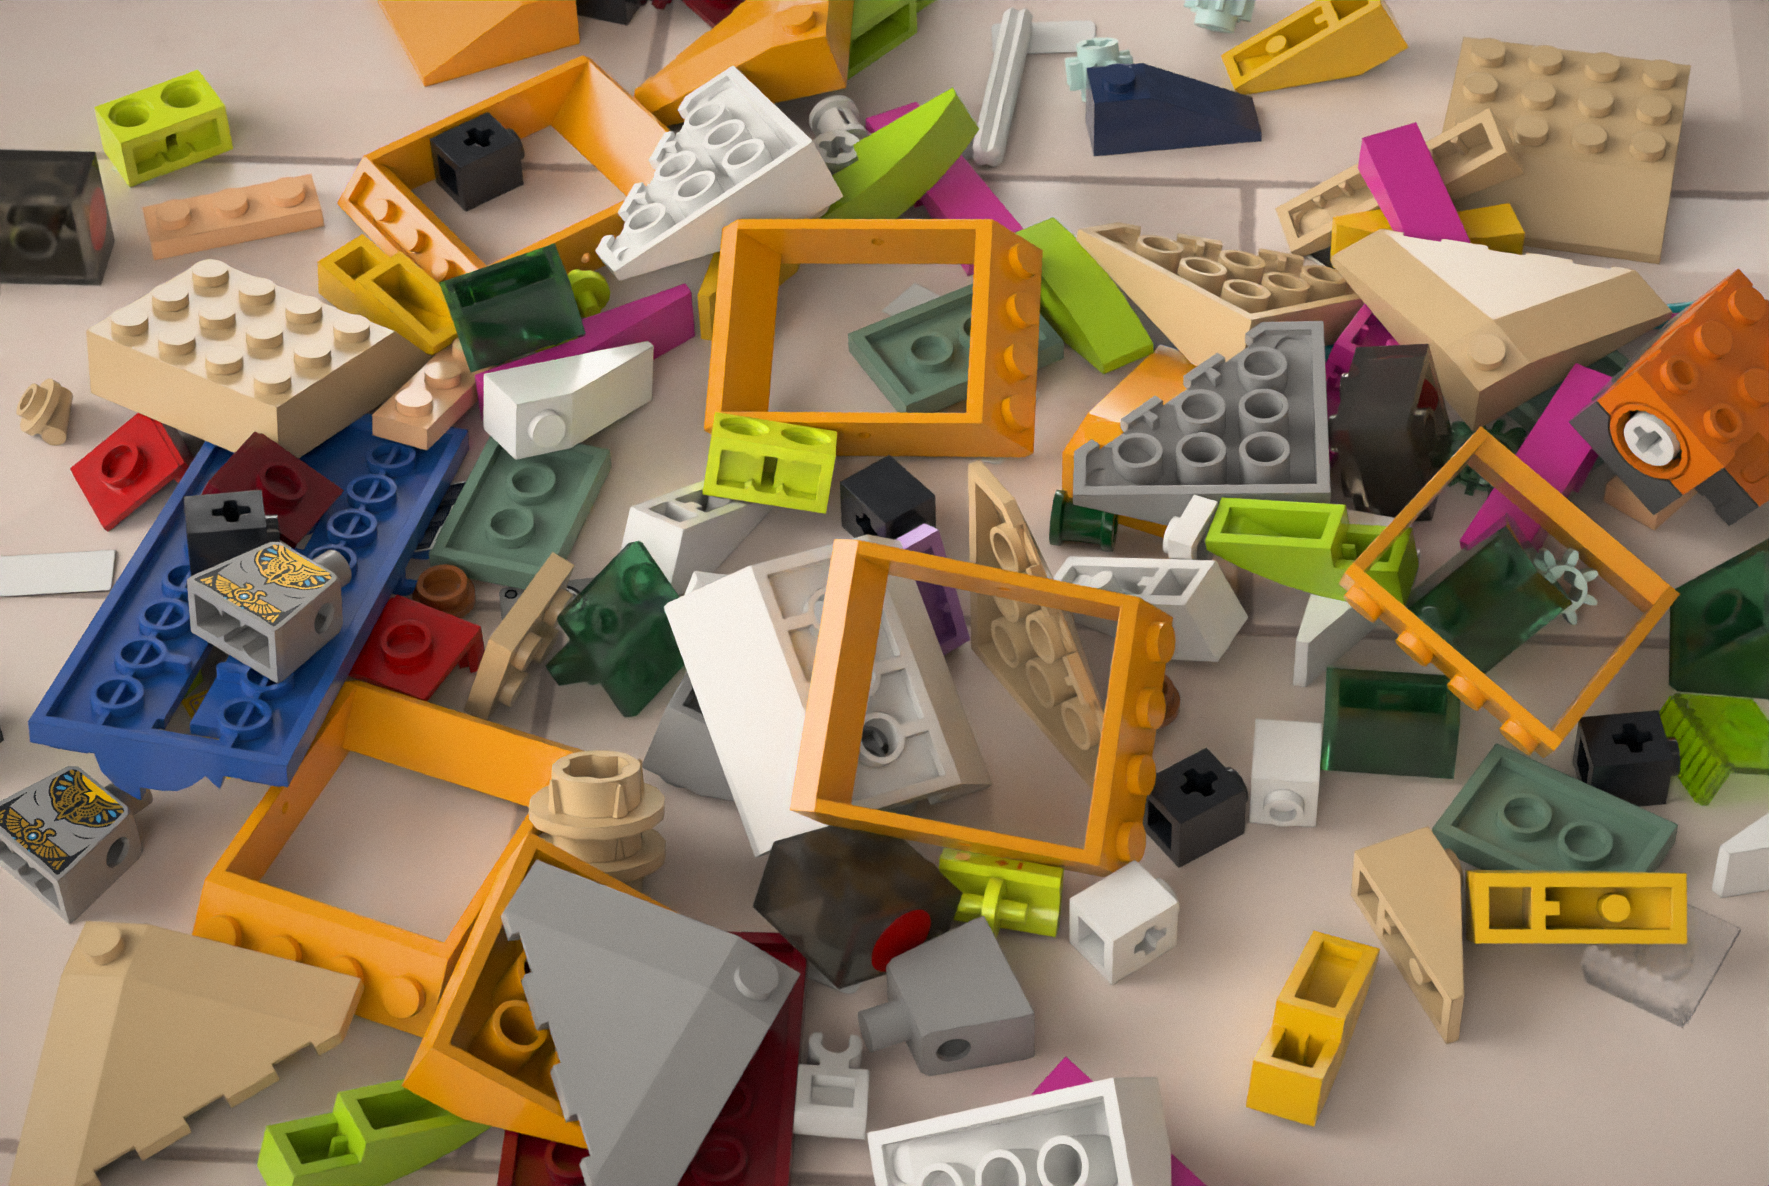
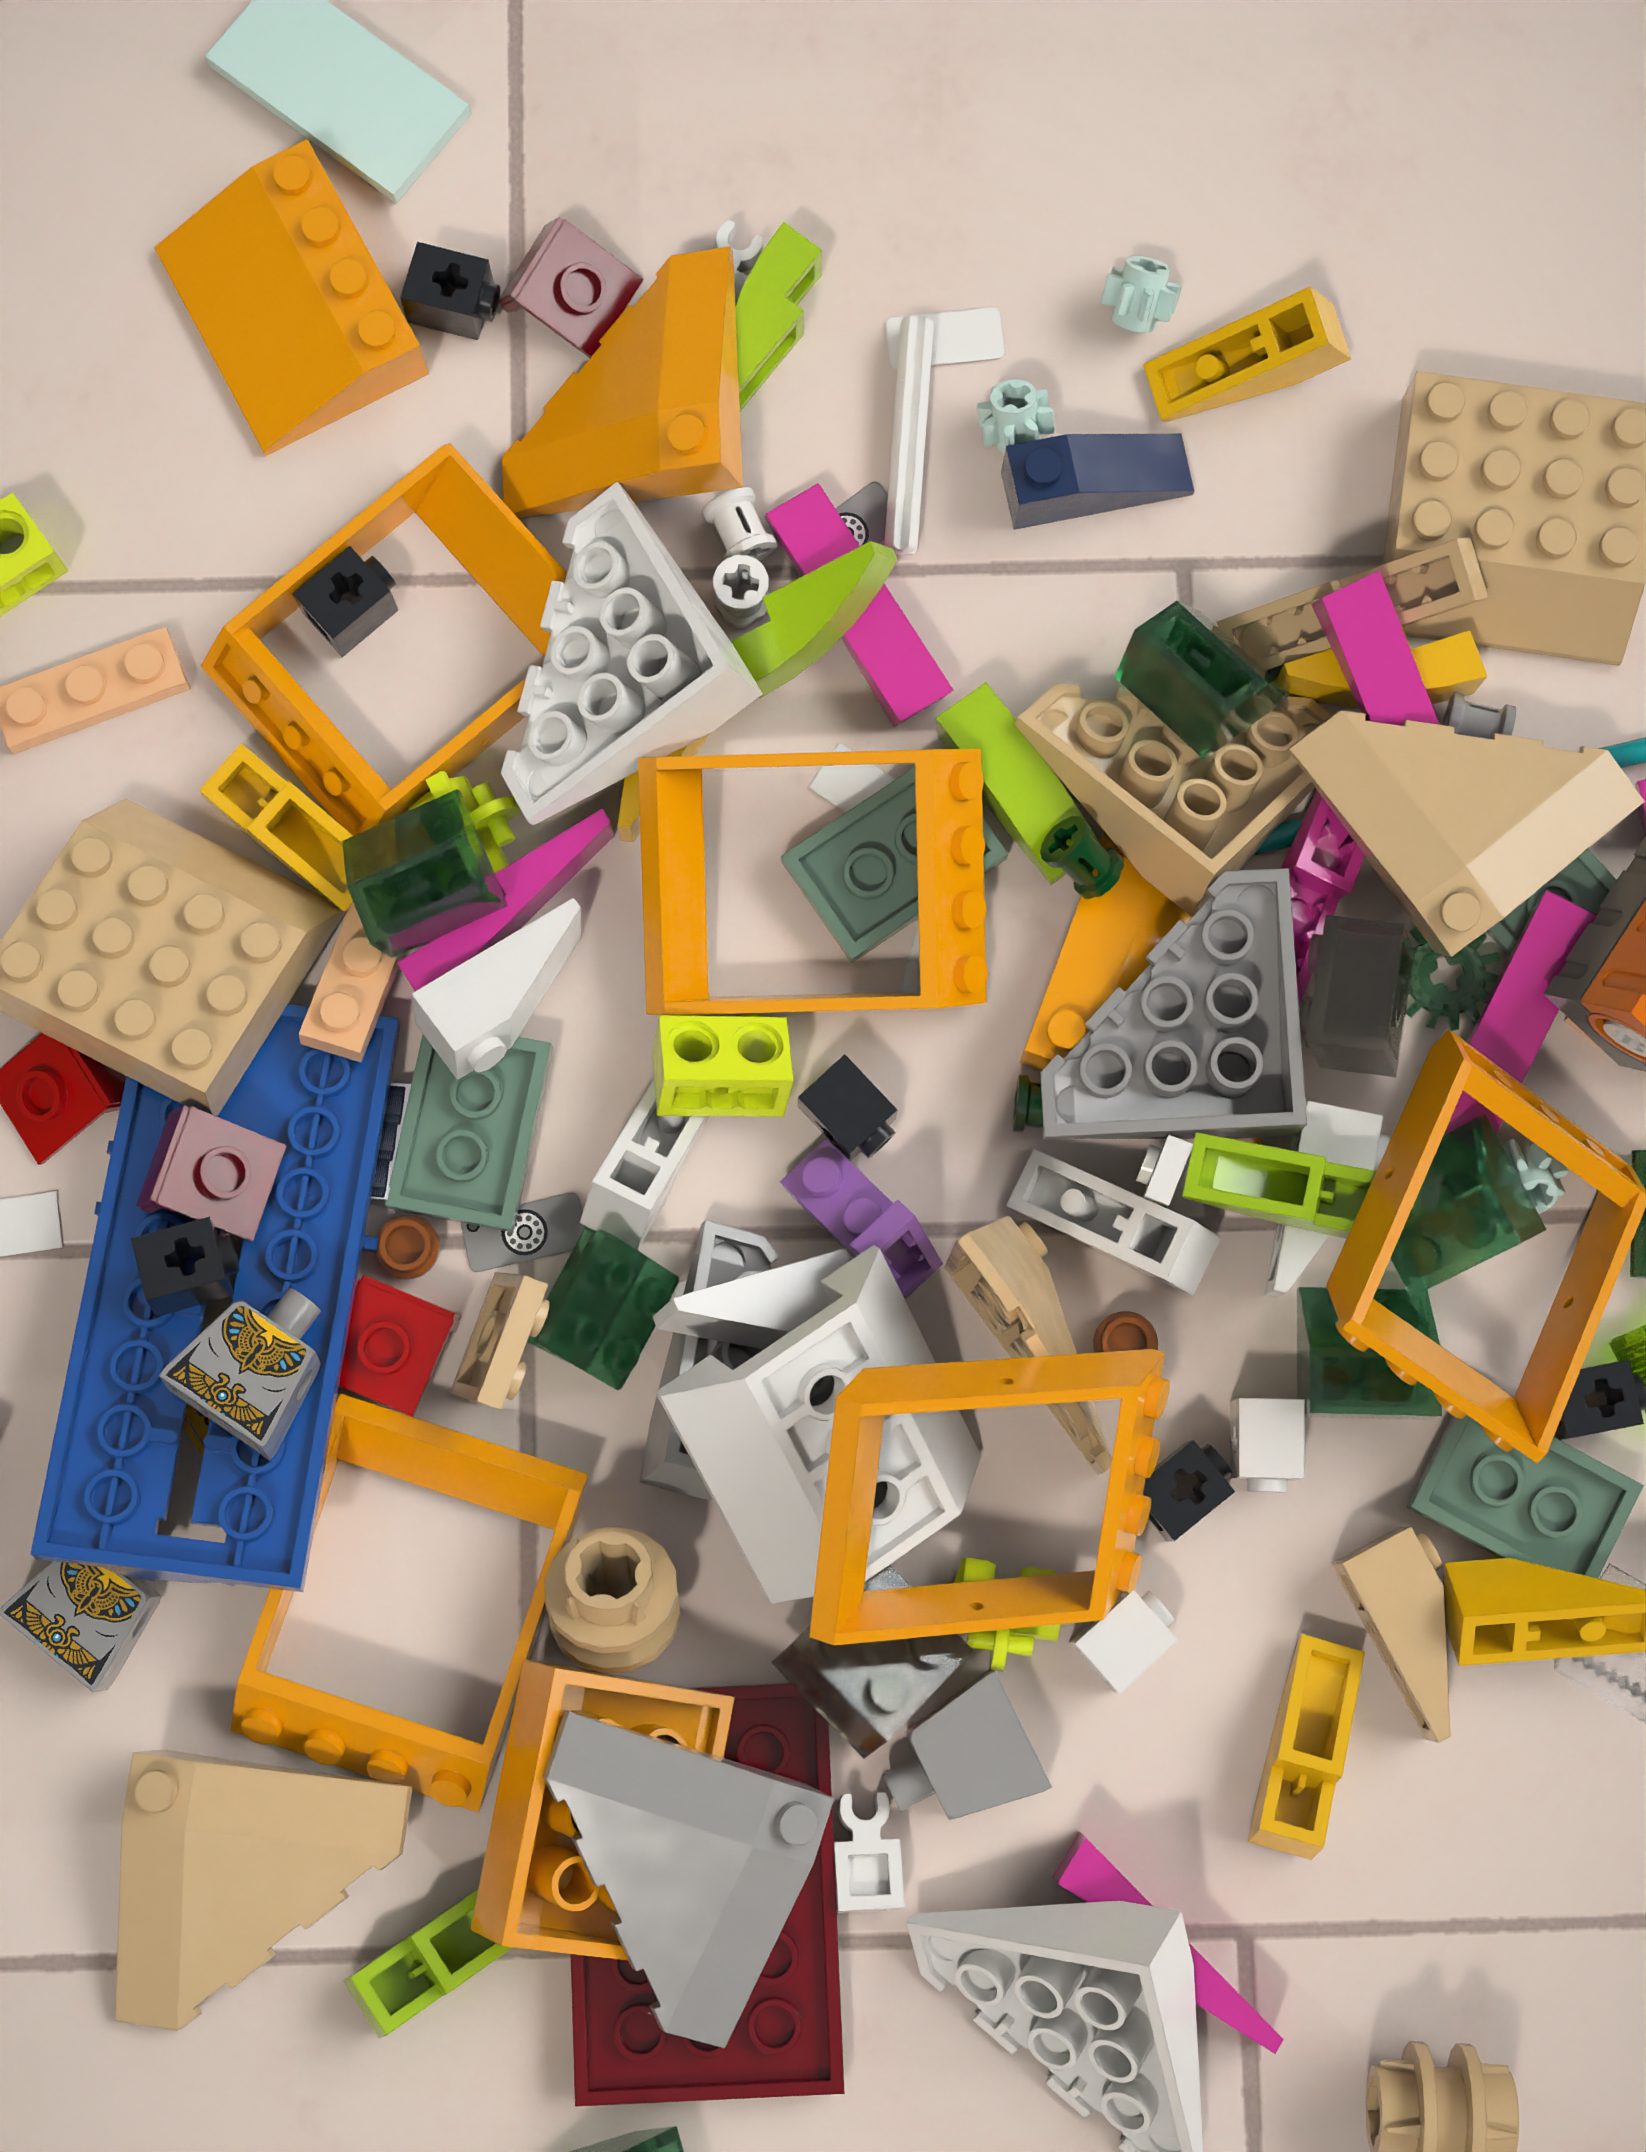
camera: 10 degrees left, 35 degrees up
(1131, 332) = (1094, 856): none -> dark green bush
(1250, 212) = (1196, 678): none -> clear green slope

